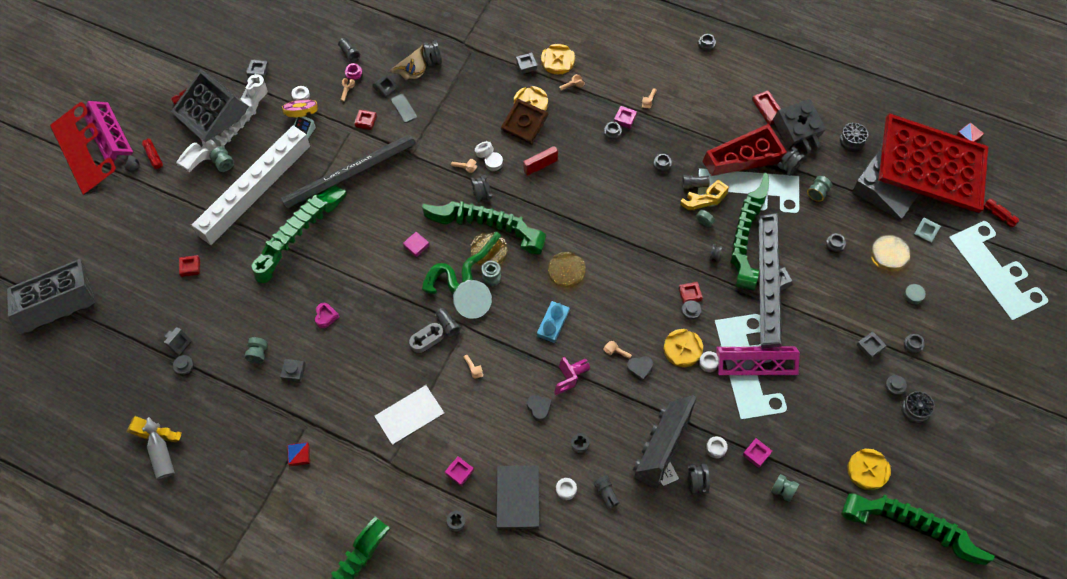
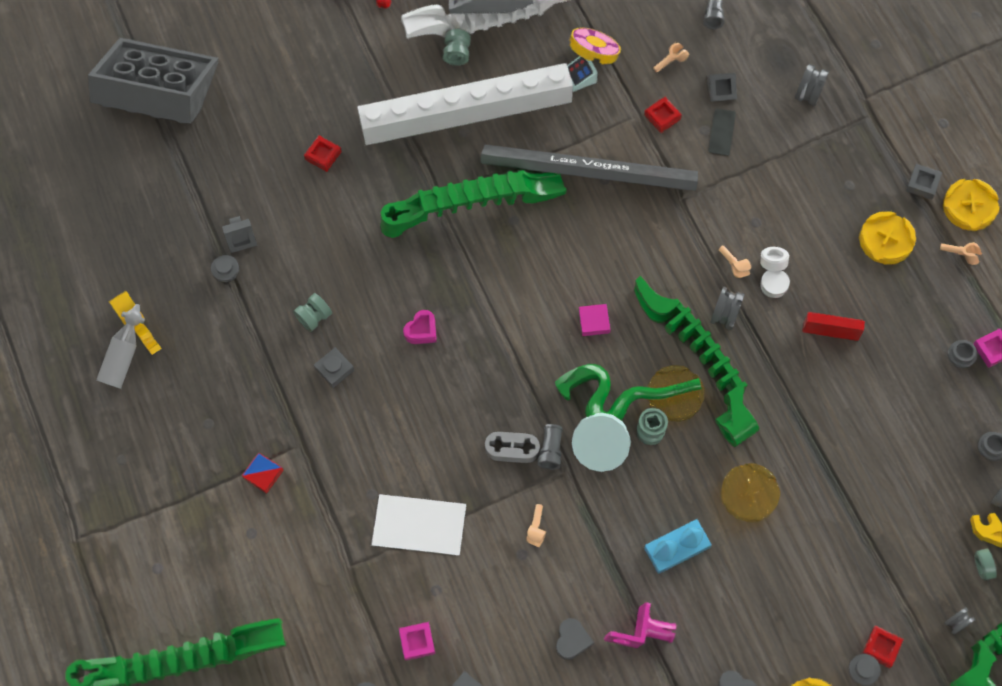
camera: 40 degrees right, 5 degrees up
(300, 93) = (612, 26): white tile -> none
(353, 71) = (699, 36): dark pink plate -> none
(412, 66) = (773, 85): tan hat -> none
(524, 121) = (856, 258): reddish brown tile -> none
(612, 347) = (722, 636): light nougat hand -> none

